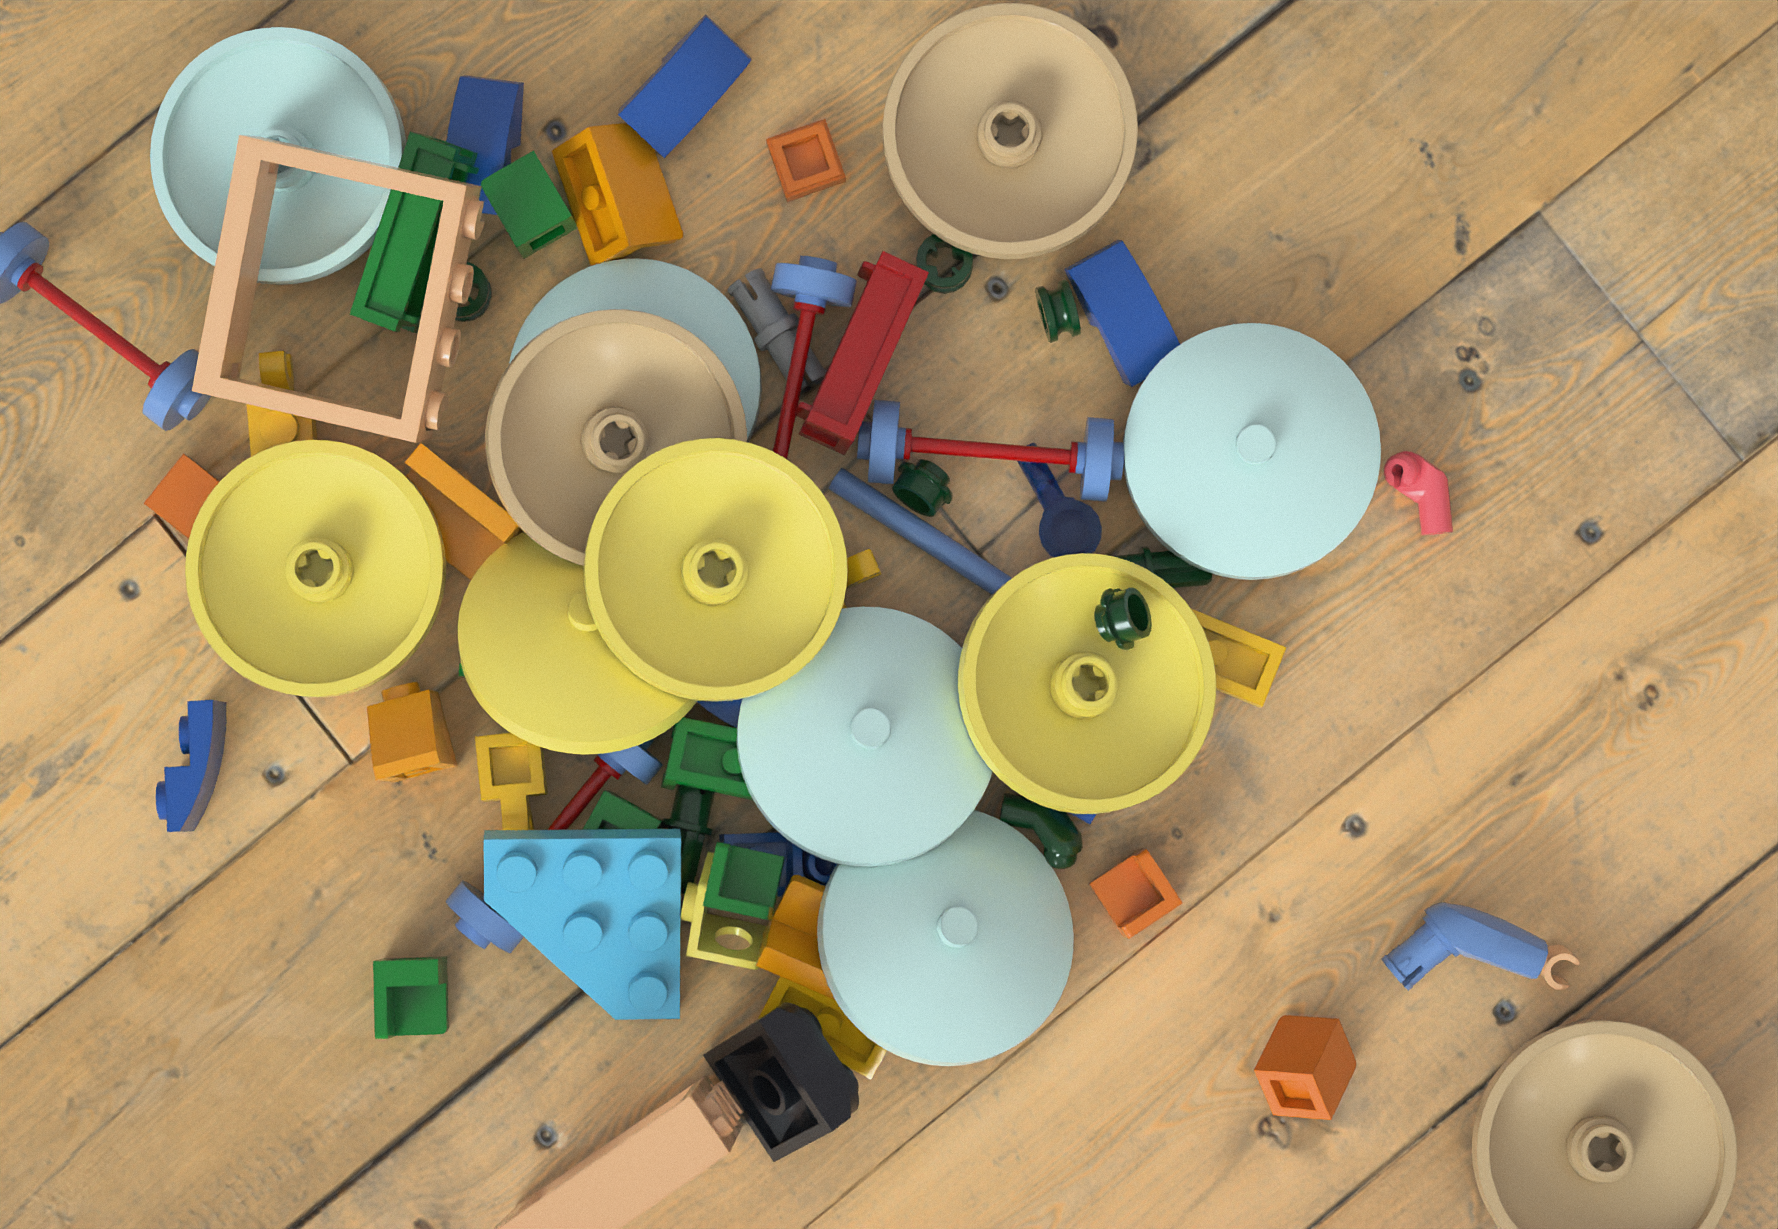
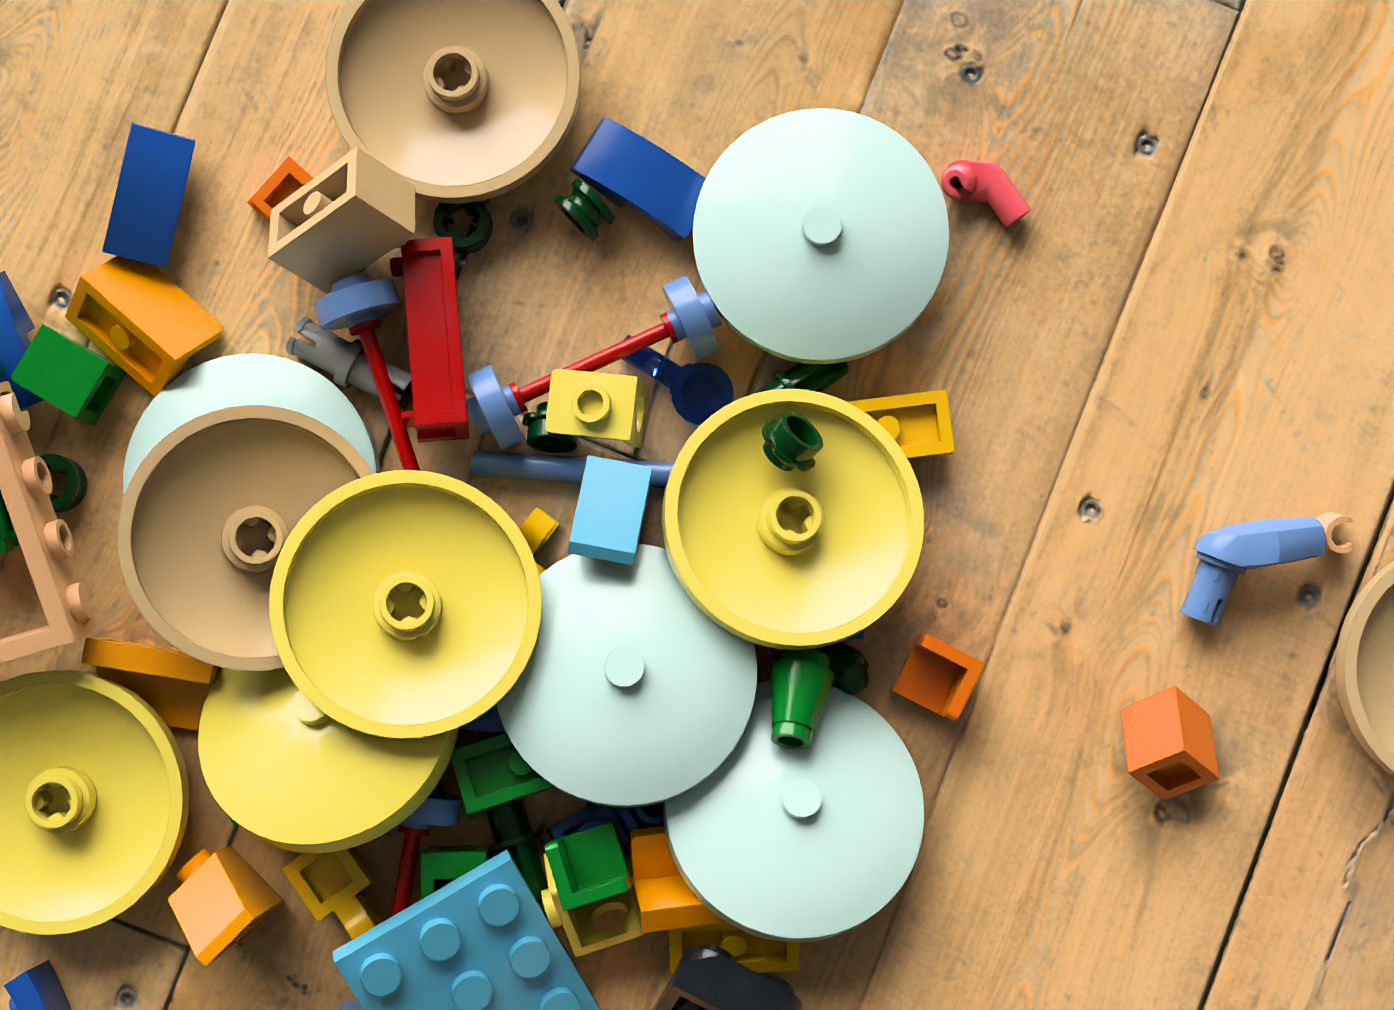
camera: 30 degrees left, 0 degrees up
(842, 206) = (342, 220): none -> tan brick
(934, 587) = (610, 510): none -> medium azure slope
(972, 490) = (597, 406): none -> light yellow bracket
(1006, 838) = (798, 695): none -> green cone

